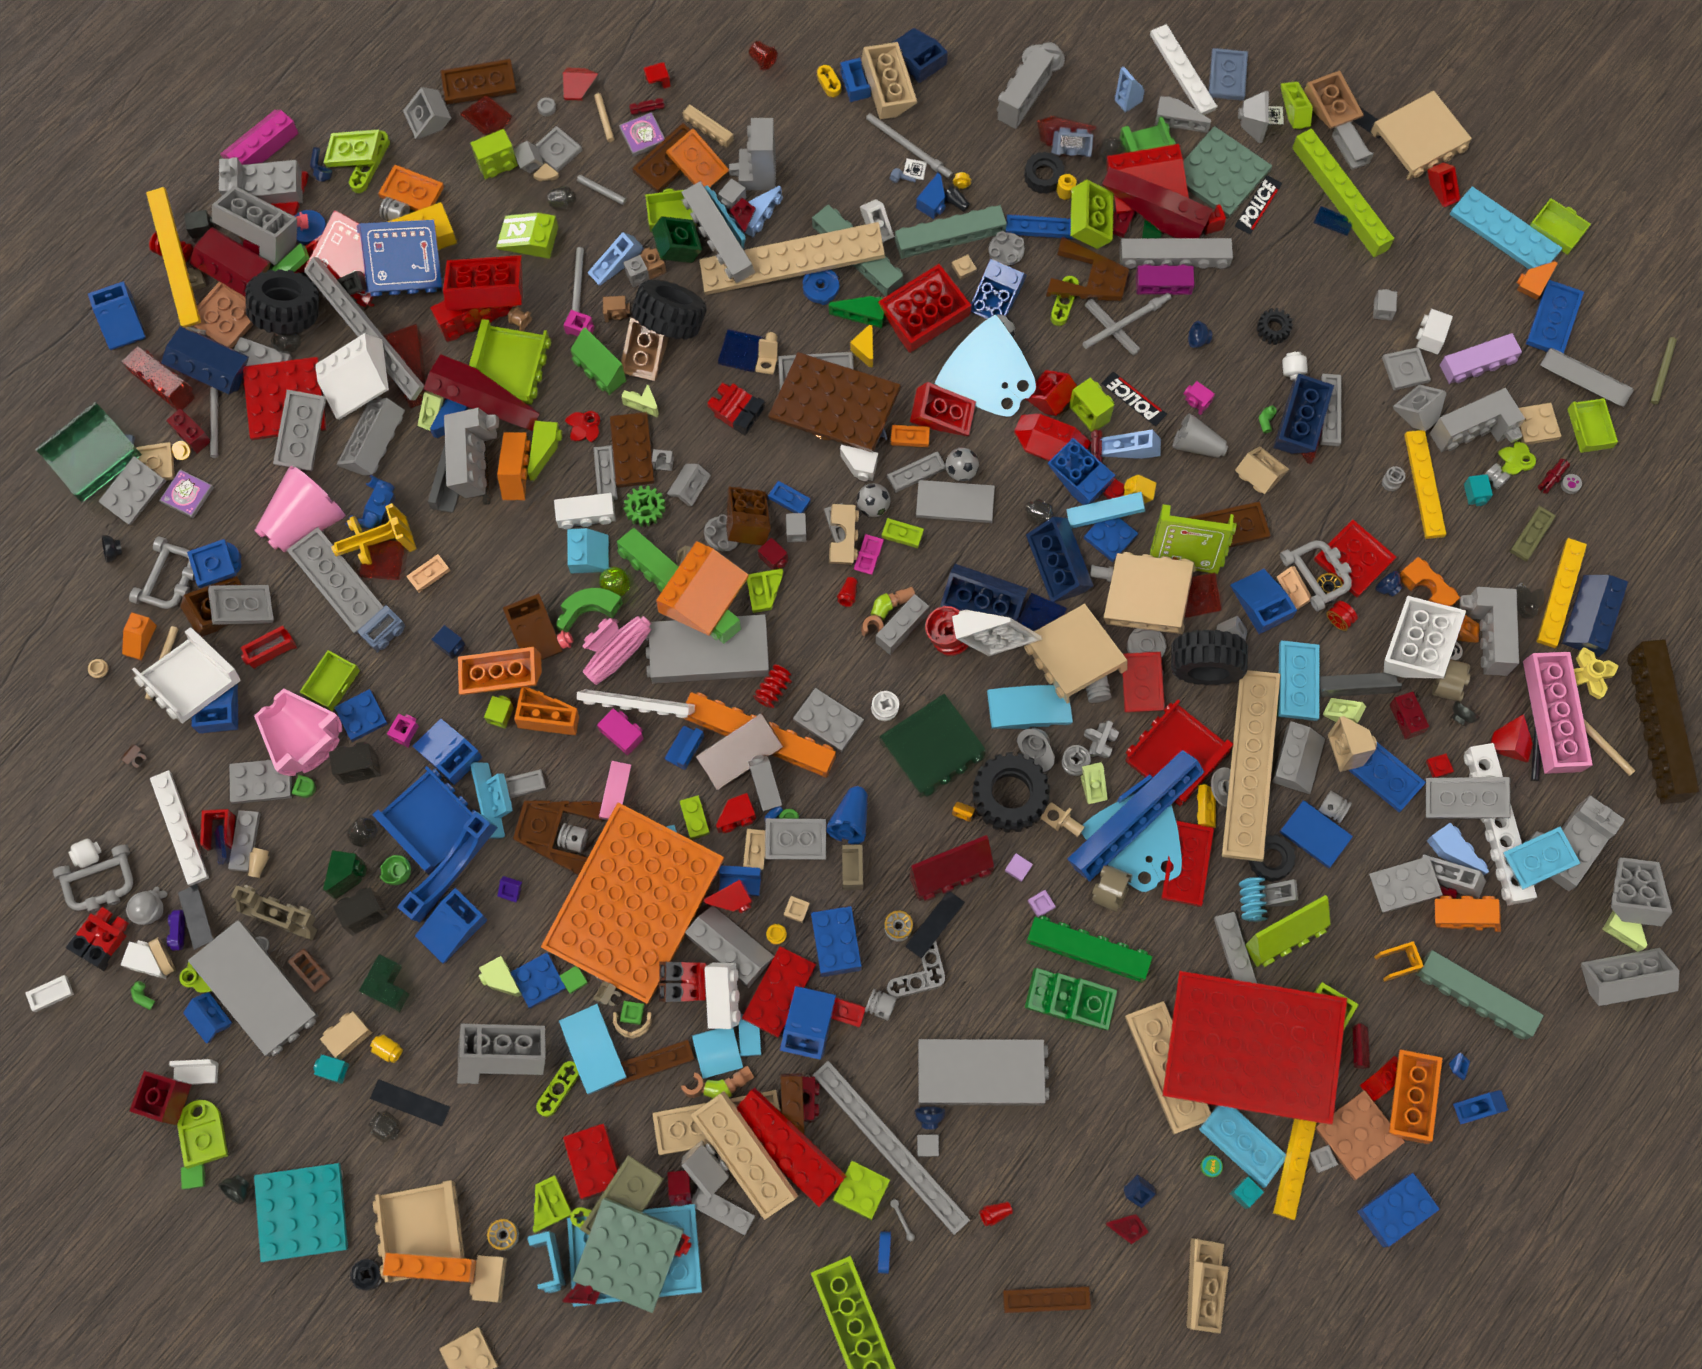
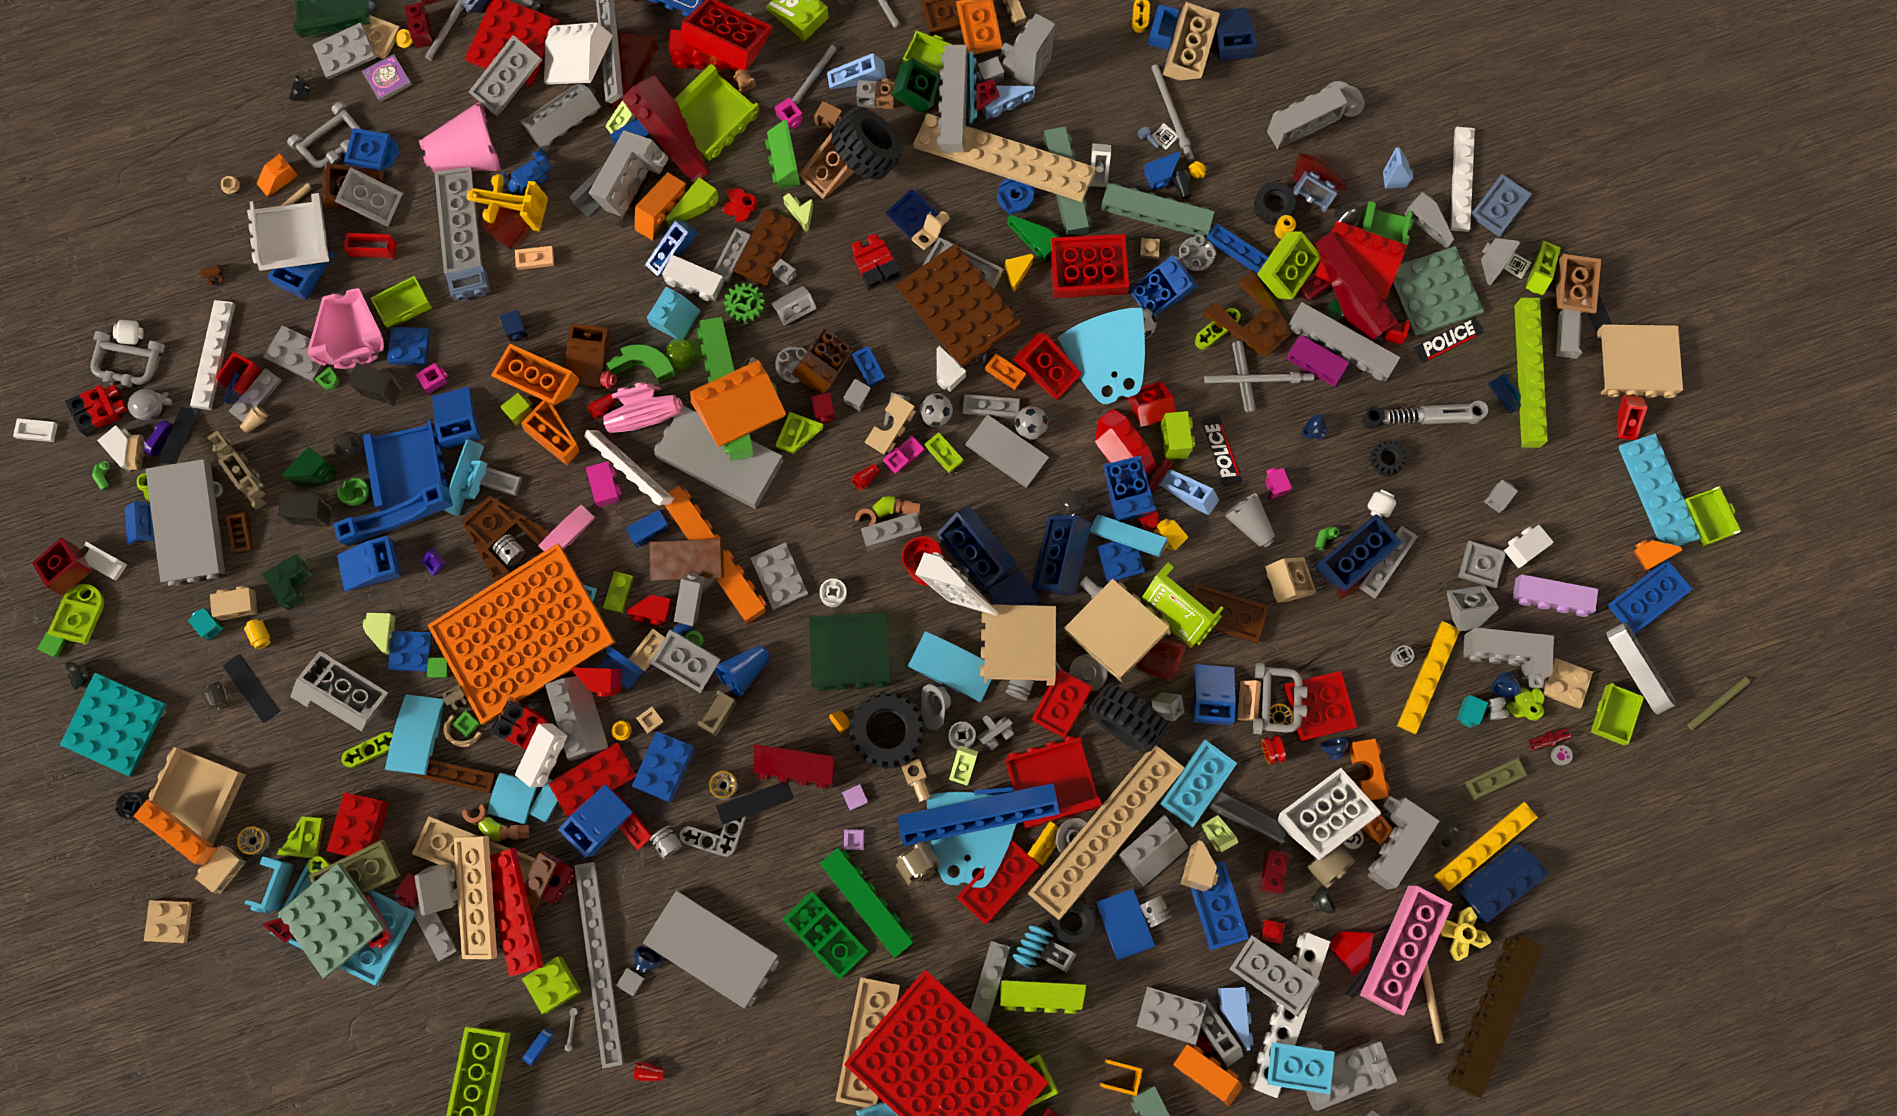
camera: 30 degrees right, 5 degrees up
(547, 491) = (673, 243): none -> blue slope
(573, 667) = (601, 406): none -> red cone
(772, 686) = (750, 521): red piece -> none
(1282, 273) = (1427, 414): none -> piece
(1491, 453) = (1506, 685): none -> dark blue piece

